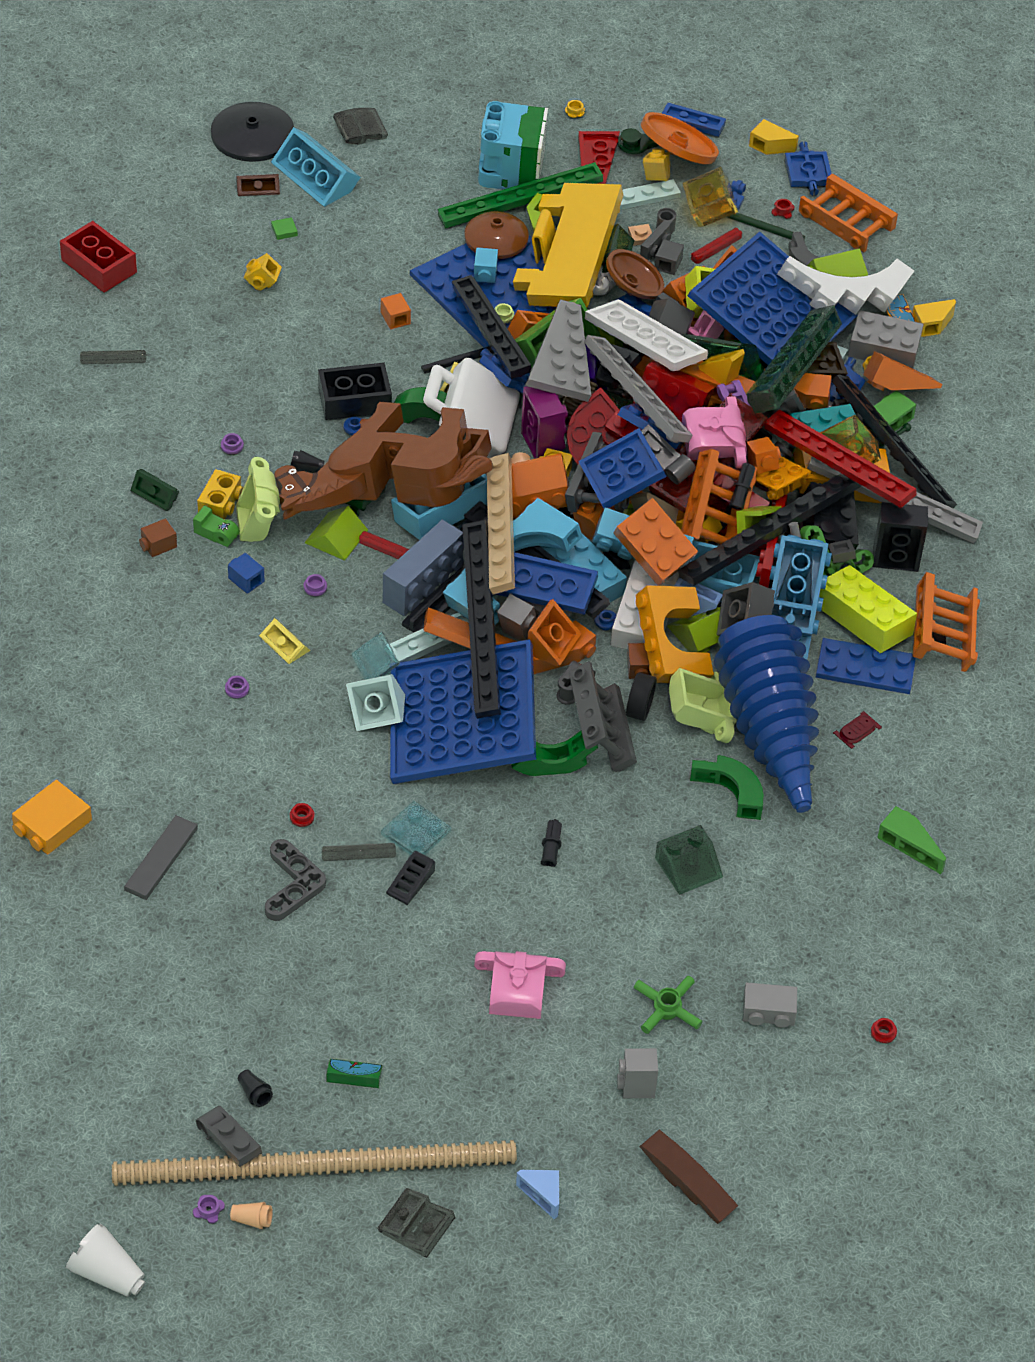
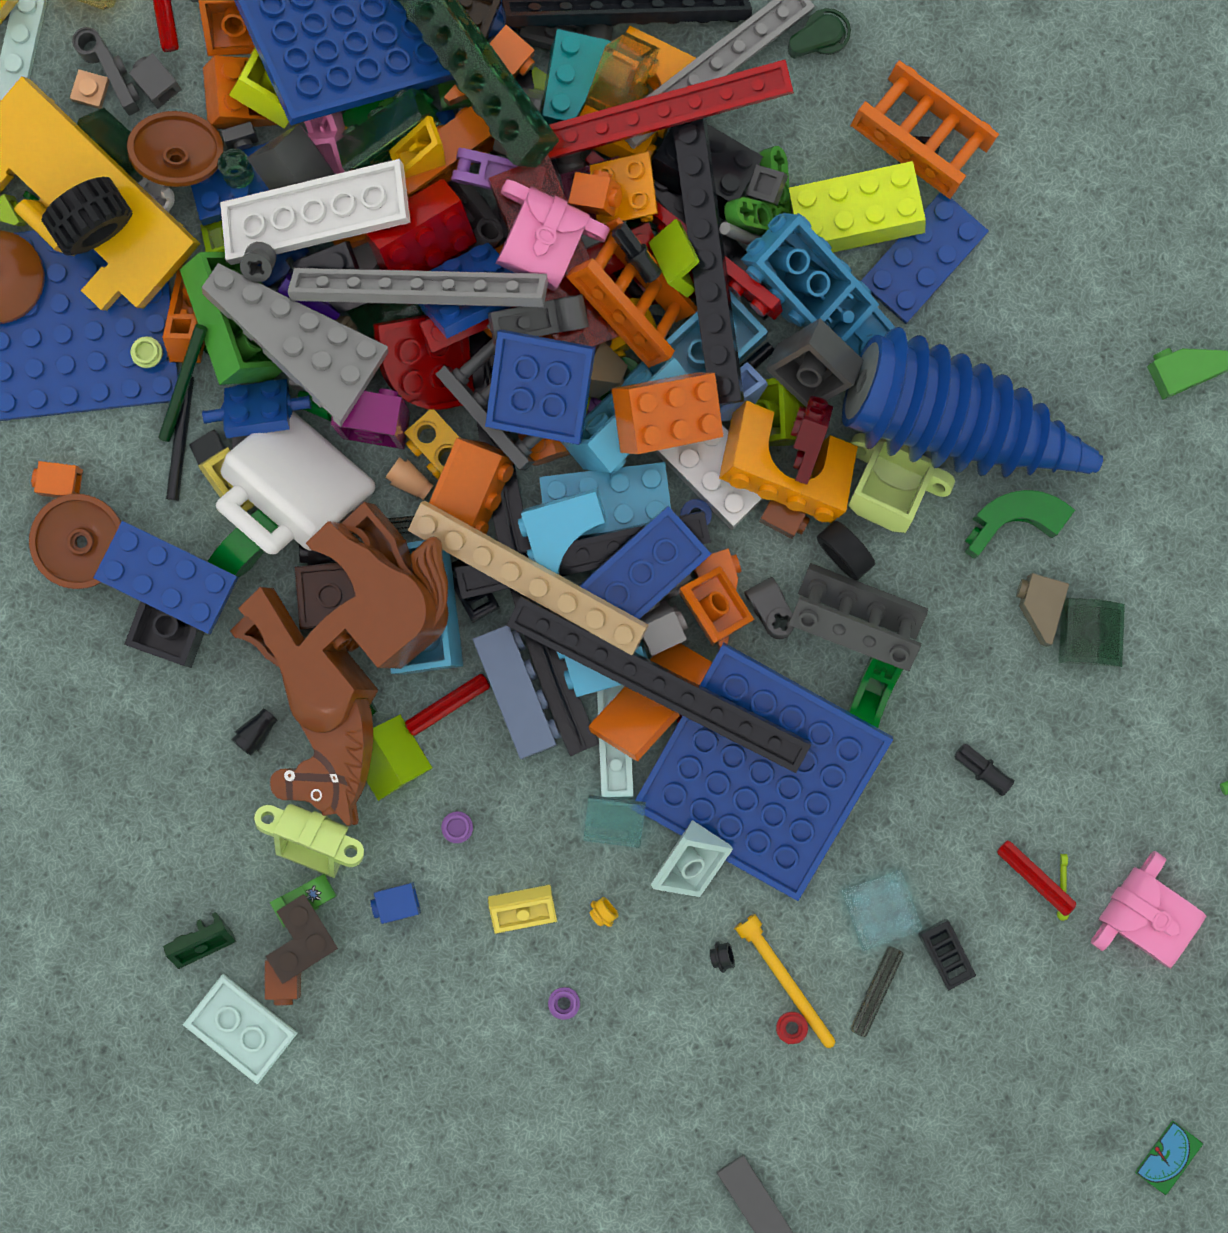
camera: 55 degrees left, 35 degrees up
(111, 535) = (240, 1028): none -> light aqua tile
(191, 532) = (309, 942): none -> dark brown plate
(221, 493) = (248, 874): yellow brick -> none
(232, 438) = (162, 810): medium lavender plate -> none
(300, 882) = (878, 1074): dark grey beam -> none
(311, 678) = (603, 912): none -> yellow plate
(323, 753) = (722, 956): none -> black plate
(352, 425) = (228, 647): blue plate -> none
(353, 762) = (752, 931): none -> yellow piece
(365, 329) = (56, 534): none -> dark orange dish
(373, 369) = (166, 577): none -> blue plate
(485, 265) = (52, 327): medium azure brick -> none
(485, 935) = (1063, 880): none -> lime hinge
(492, 327) = (177, 389): black plate -> none
(498, 904) = (1036, 878): none -> red axle
(512, 329) = (182, 383): none -> dark green bar
(561, 234) = (86, 216): none -> black tyre
(595, 319) = (257, 254): none -> dark grey wheel
(645, 302) = (235, 160): none -> clear green wheel
(685, 818) = (1042, 605): none -> dark tan slope
(697, 629) = (810, 430): none -> dark red plate
(857, 729) = (1005, 325): dark red piece -> none
(900, 537) = (781, 118): black brick -> none
(961, 549) = (820, 34): none -> dark green piece

